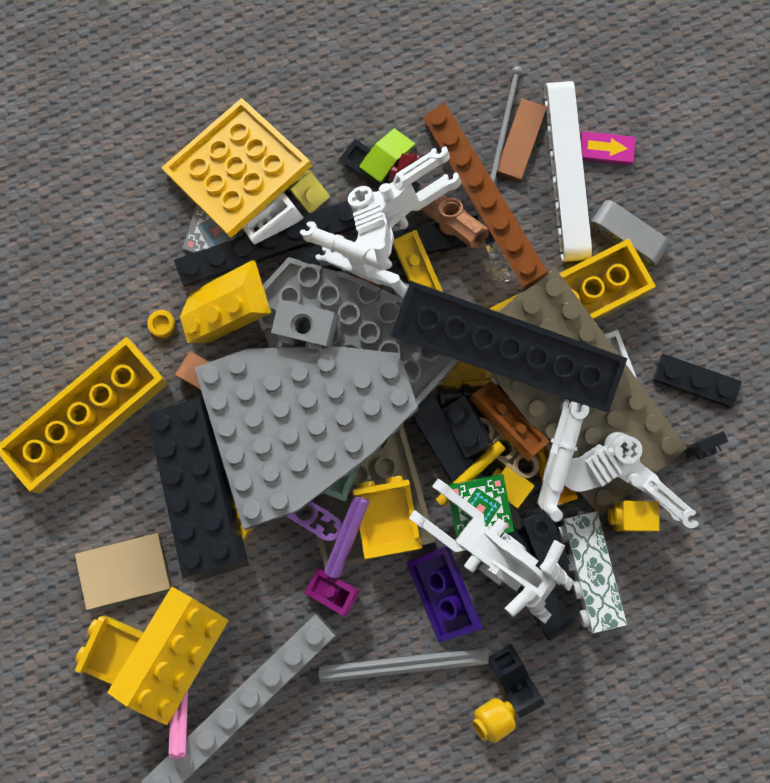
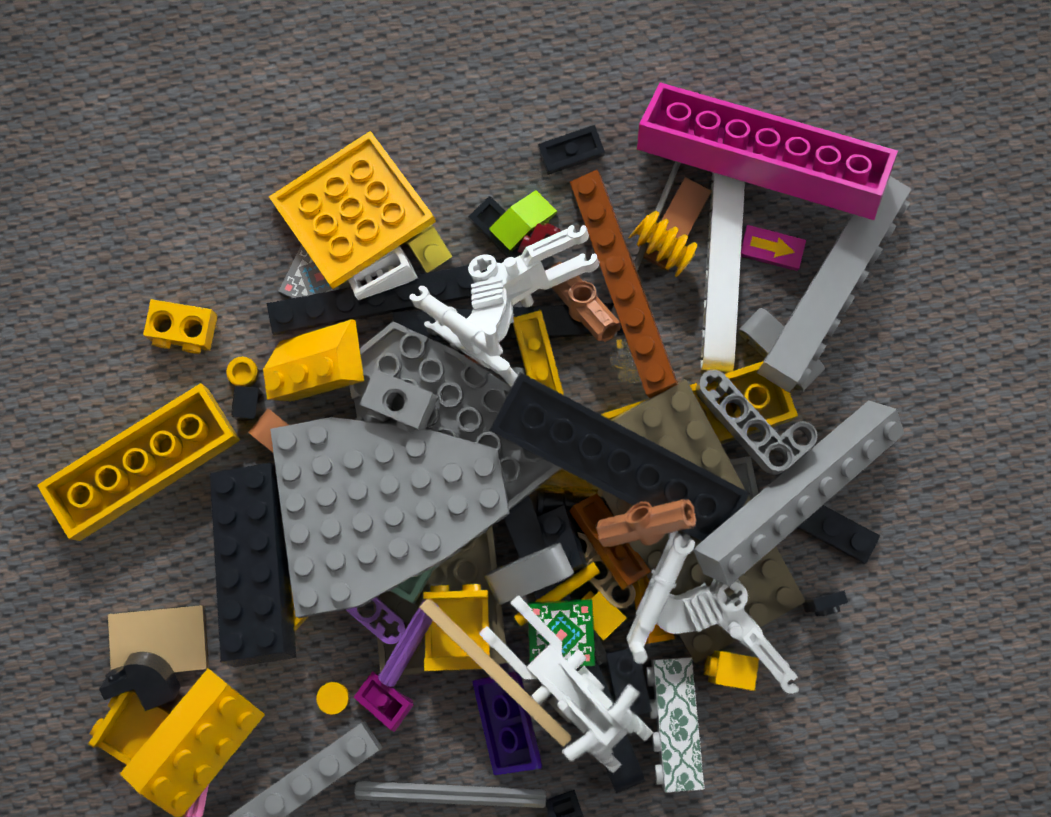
camera: 10 degrees right, 0 degrees up
(102, 284) = (182, 320): none -> yellow brick
(117, 601) = (147, 675): none -> black brick
(168, 349) = (245, 402): none -> black slope
(286, 596) = (332, 698): none -> yellow tile
(419, 89) = (571, 149): none -> black plate
(429, 550) = (496, 672): none -> tan tile
(444, 459) = (529, 574): none -> light grey beam
(515, 155) = (664, 242): none -> yellow piece
(542, 397) = (646, 523): none -> nougat piece
(591, 62) = (766, 150): none -> dark pink brick
(617, 293) = (751, 418): none -> light grey beam
(667, 168) = (831, 291): none -> light grey brick
(668, 353) = (798, 492): none -> light grey brick

